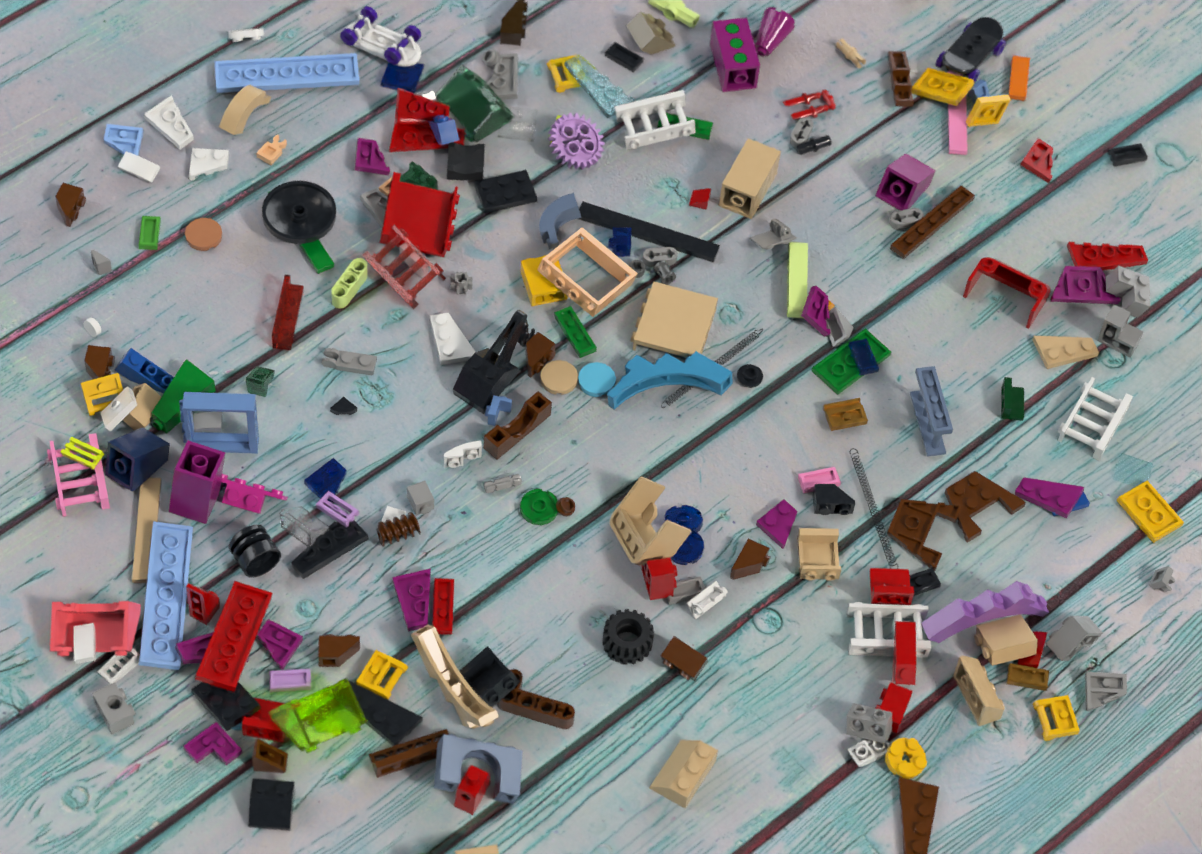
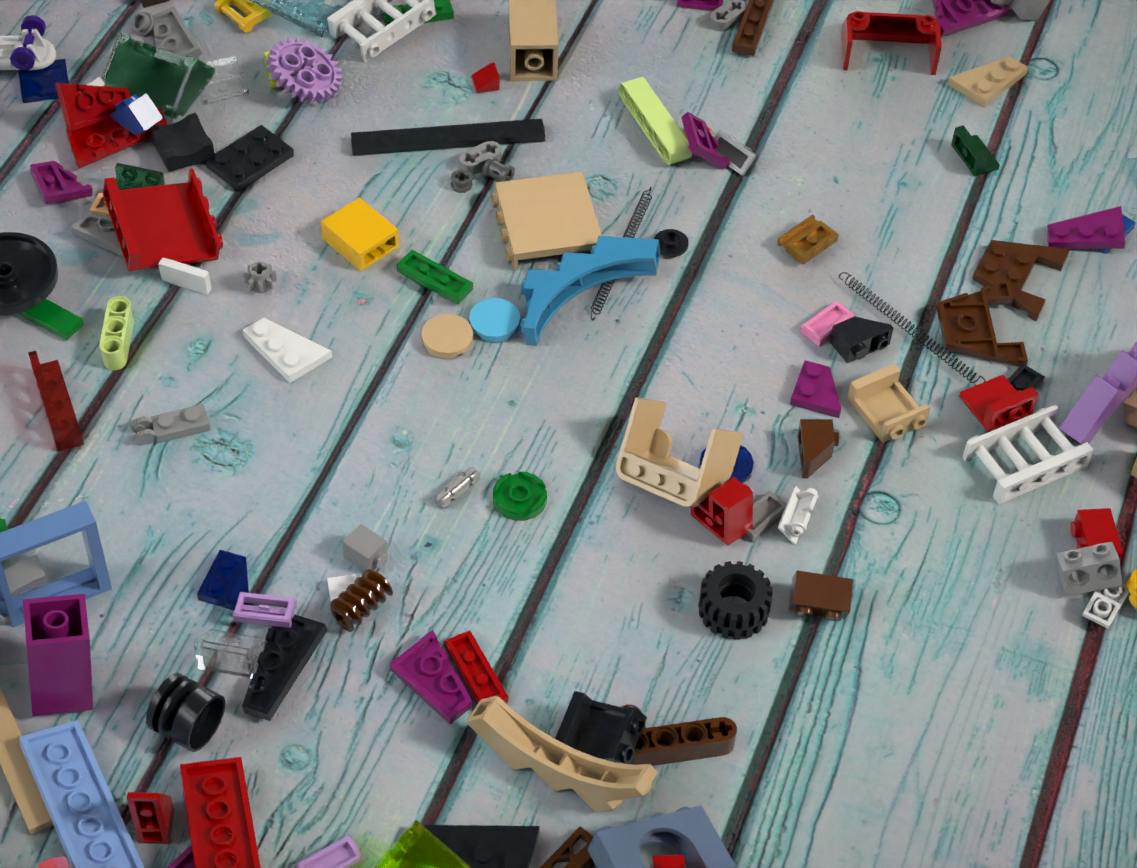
camera: 25 degrees left, 5 degrees down
(246, 496) = (131, 648): dark pink bracket -> none
(258, 380) = (64, 492): clear green slope -> none
(279, 642) = (286, 819): magenta wing -> none
(337, 649) = (370, 792): reddish brown slope -> none
(343, 406) = (195, 483): black tile -> none
(375, 672) = (440, 795): yellow plate -> none
(398, 283) = (180, 309): clear red fence -> none
(455, 456) = (380, 478): white slope -> none
(491, 373) = (359, 364): black slope -> none
(498, 404) = (395, 396): medium blue bracket -> none
(532, 414) = (428, 429): reddish brown arch -> none
(538, 352) = (404, 318): reddish brown slope -> none
(555, 215) = (330, 157): sand blue arch -> none
(565, 506) = (554, 480): reddish brown plate -> none
(600, 255) = (415, 180): light nougat window -> none
(620, 241) = (425, 158): clear blue brick -> none
(685, 516) = (696, 433): clear blue tile -> none
(685, 771) = (913, 733): tan slope -> none
(778, 234) = (600, 81): light grey hinge -> none
(839, 368) = (772, 182): green tile -> none
(863, 357) = (786, 170): clear blue tile -> none
(904, 653) = (1073, 470): red slope -> none
(931, 411) = (918, 181): sand blue fence -> none
(1107, 433) = (1095, 125): white fence -> none
(1118, 334) = (1034, 38): light grey brick -> none

